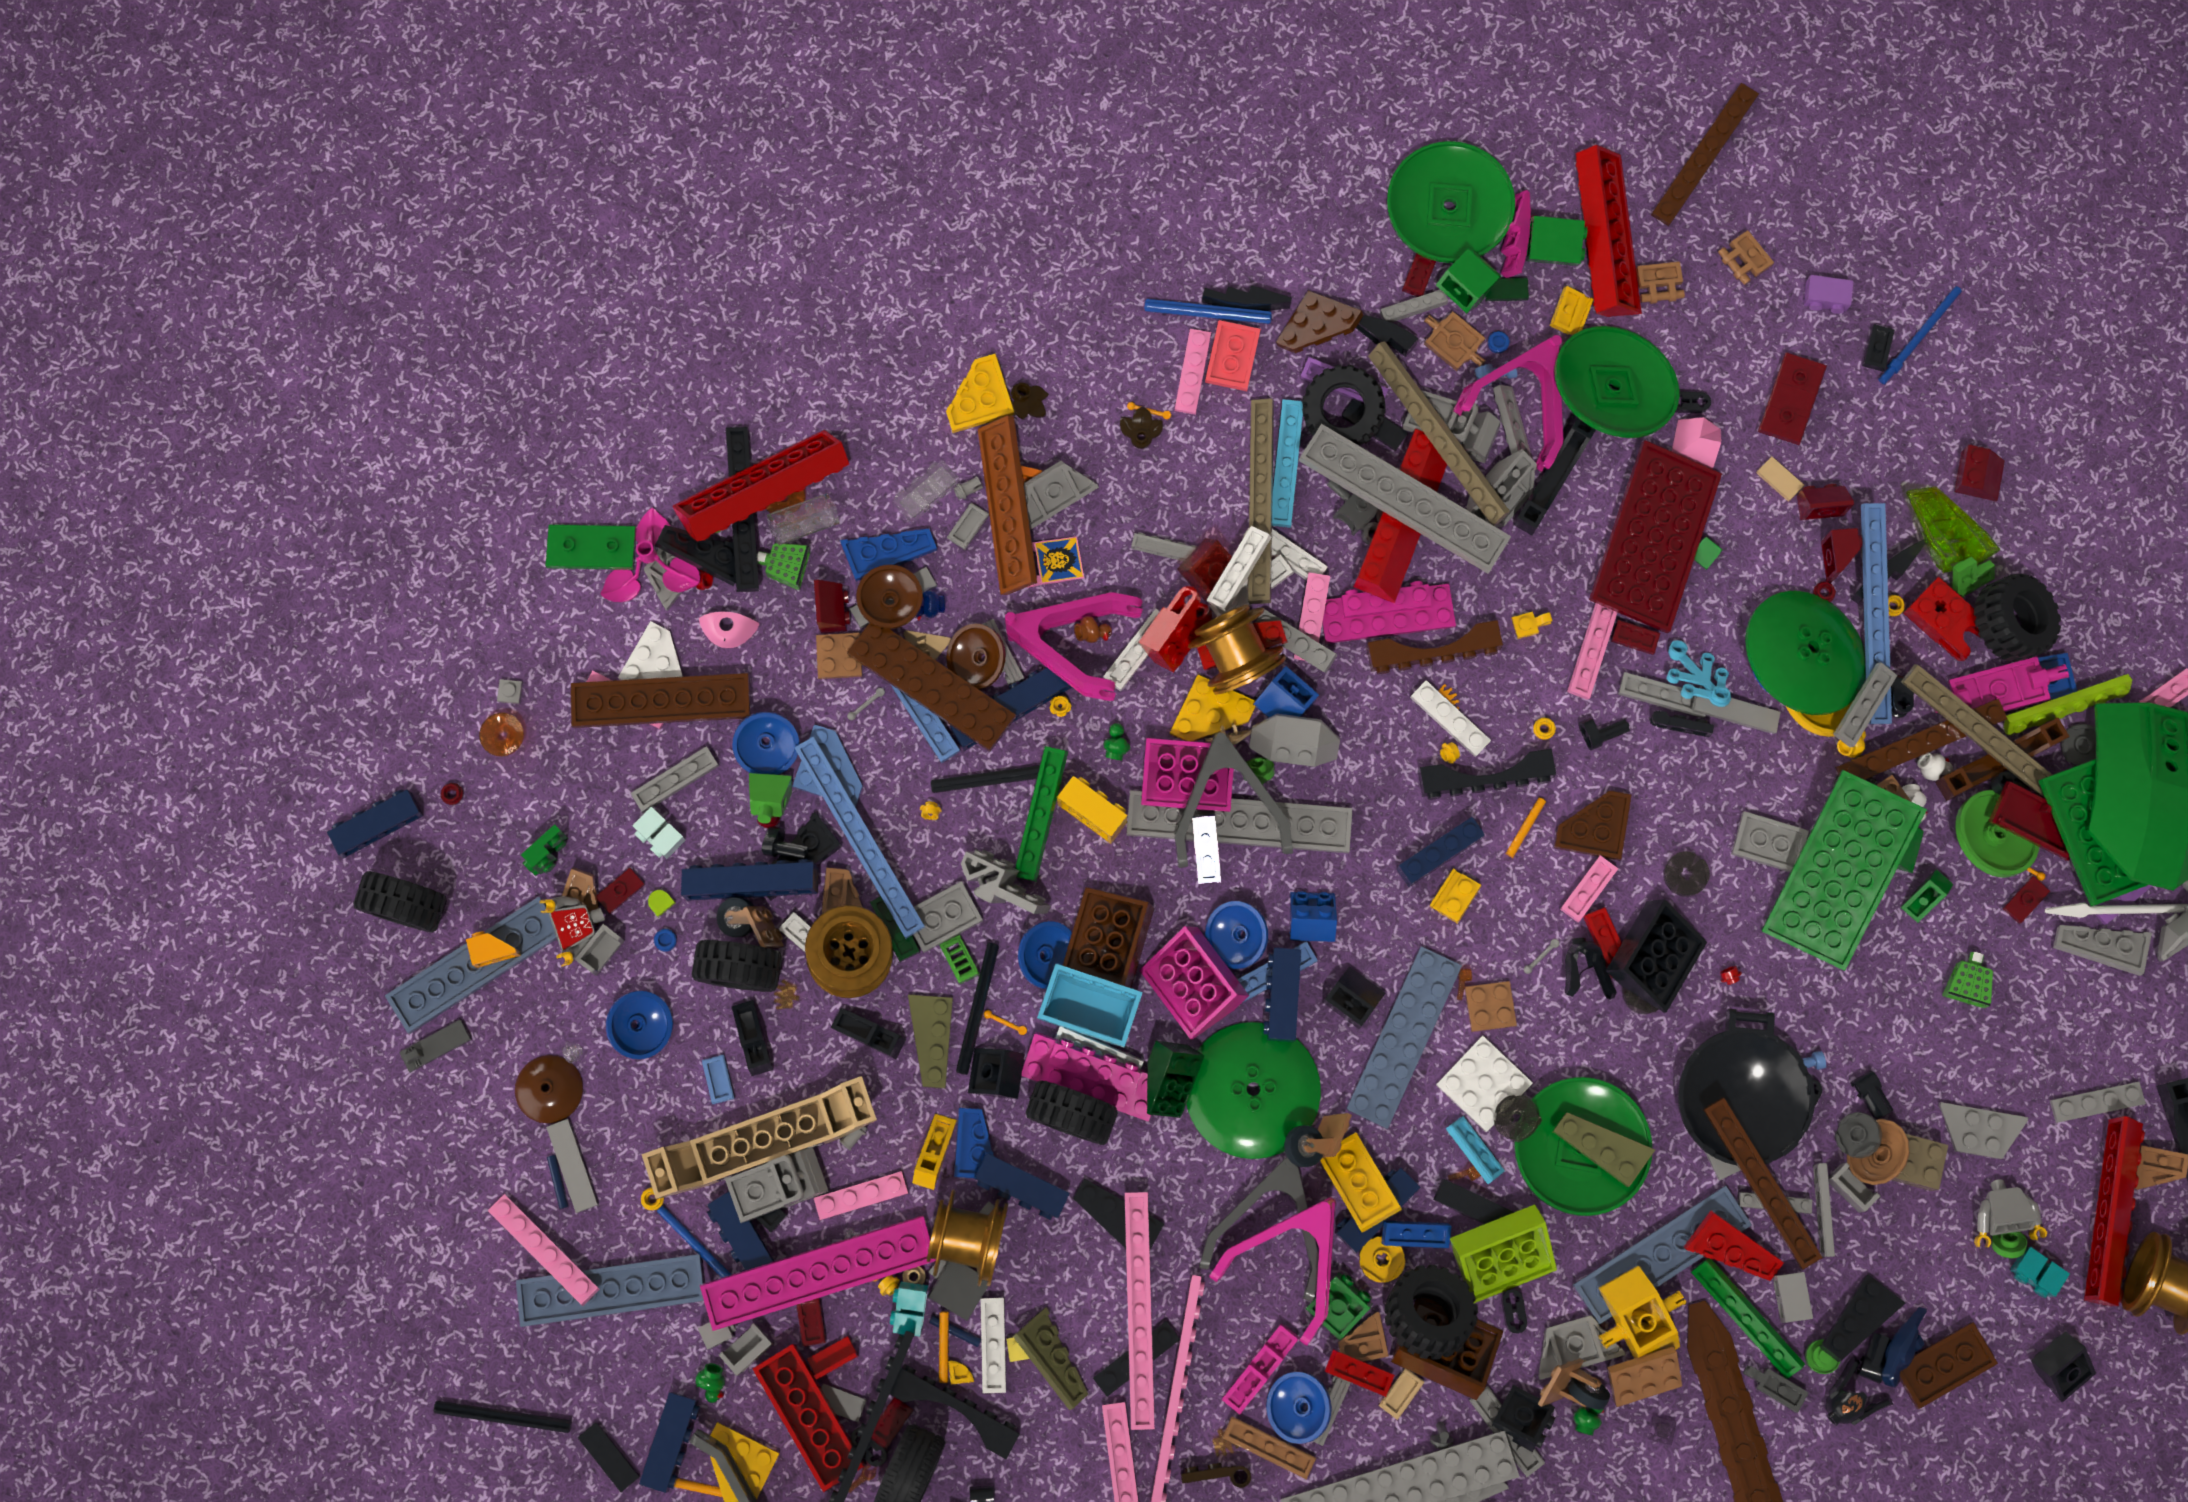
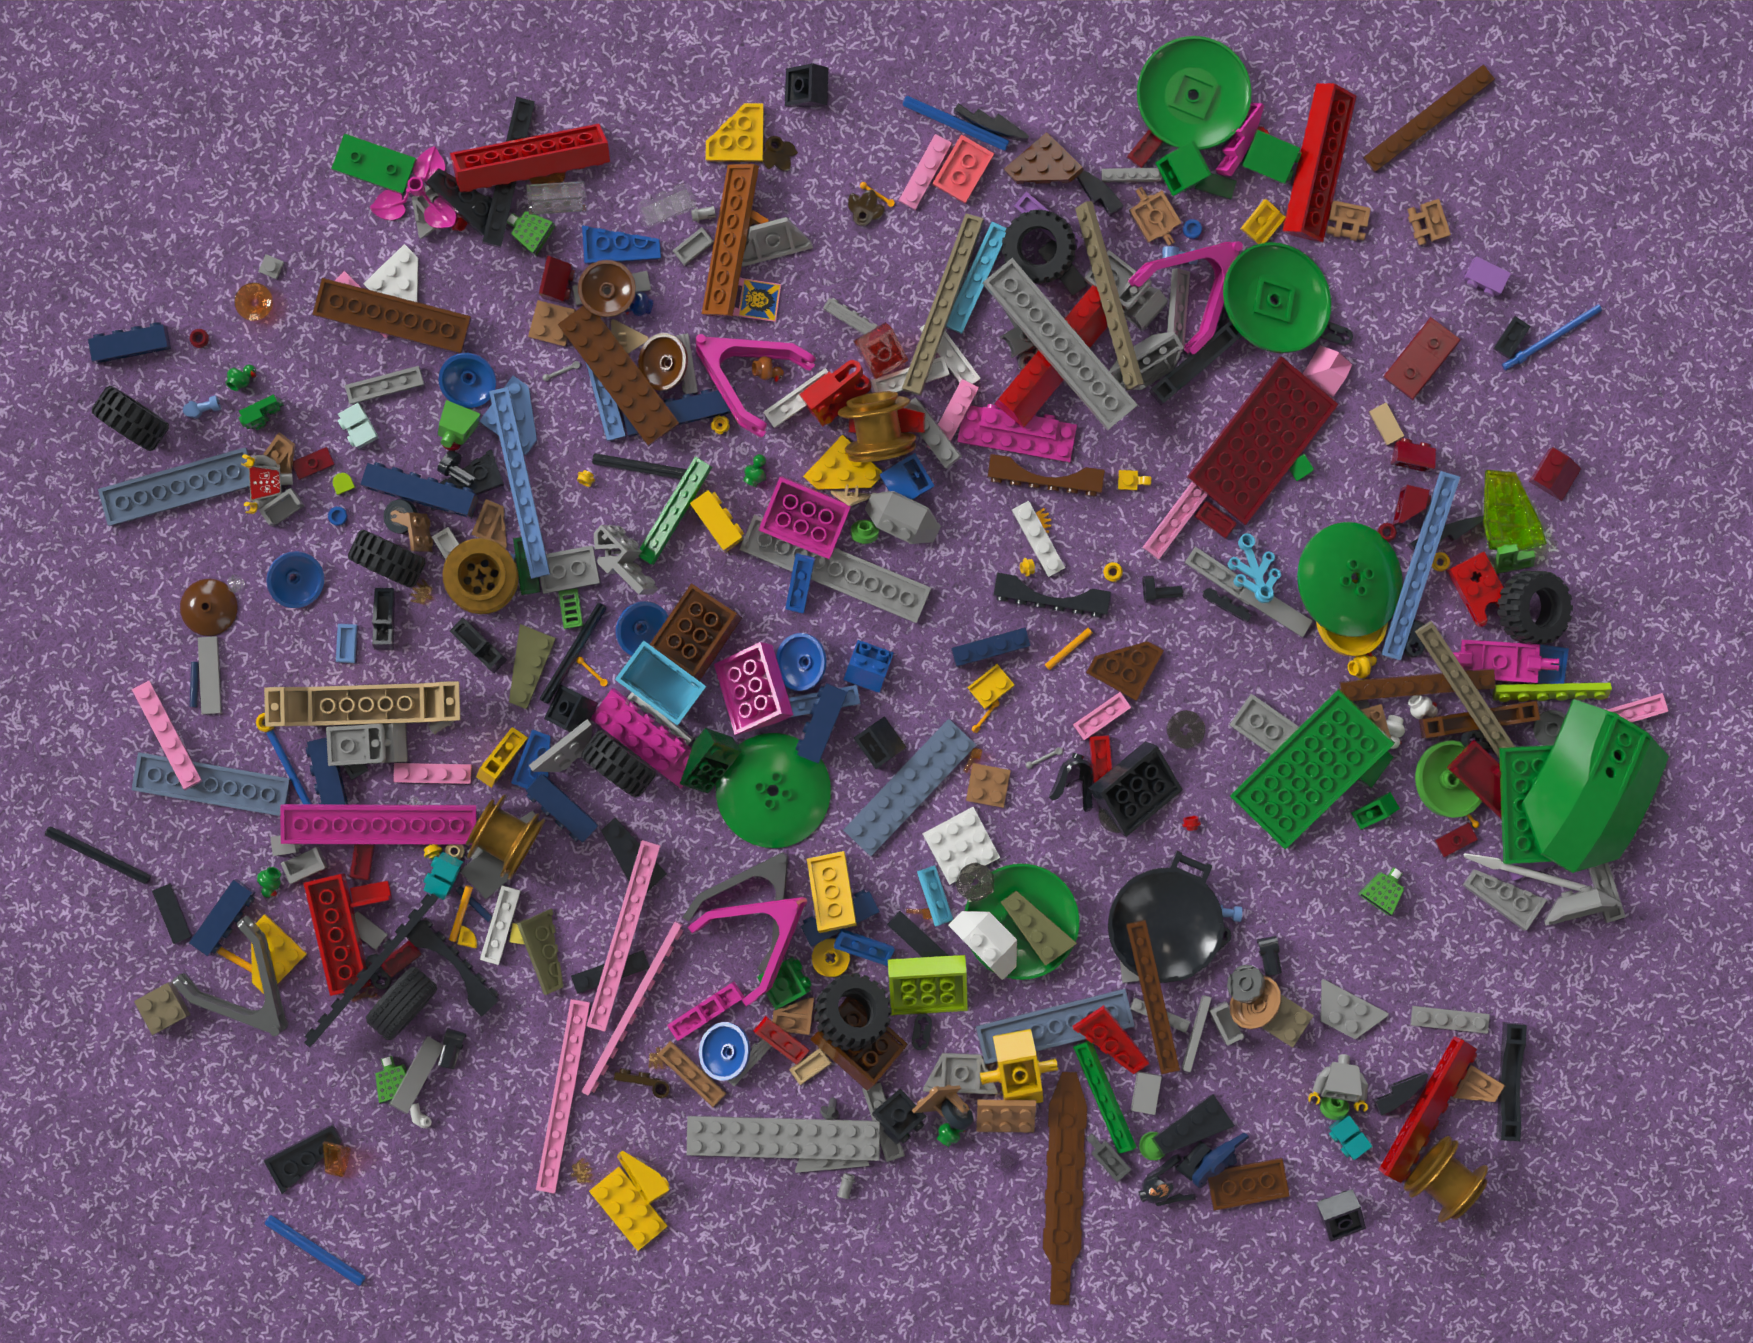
camera: 15 degrees right, 10 degrees up
(435, 1046) = (127, 543): dark grey hinge -> none
(469, 873) = (195, 410): none -> medium blue leg
(487, 949) = (191, 479): light orange slope -> none
(509, 824) = (237, 379): none -> green animal
(742, 629) = (475, 278): bright pink piece -> none
(1005, 1119) = (565, 751): none -> light grey wing
(1035, 321) = (806, 86): none -> black slope
(1224, 755) = (835, 513): dark grey piece -> none
(1239, 568) = (903, 358): white plate -> none
(1307, 1145) = (798, 850): plate -> none
(1455, 947) = (976, 728): none -> light orange hinge
(1554, 1179) = (988, 940): none -> white wedge
(1865, 704) = (1381, 639): light grey plate -> none
(2075, 1203) = (1400, 1093): none -> black slope

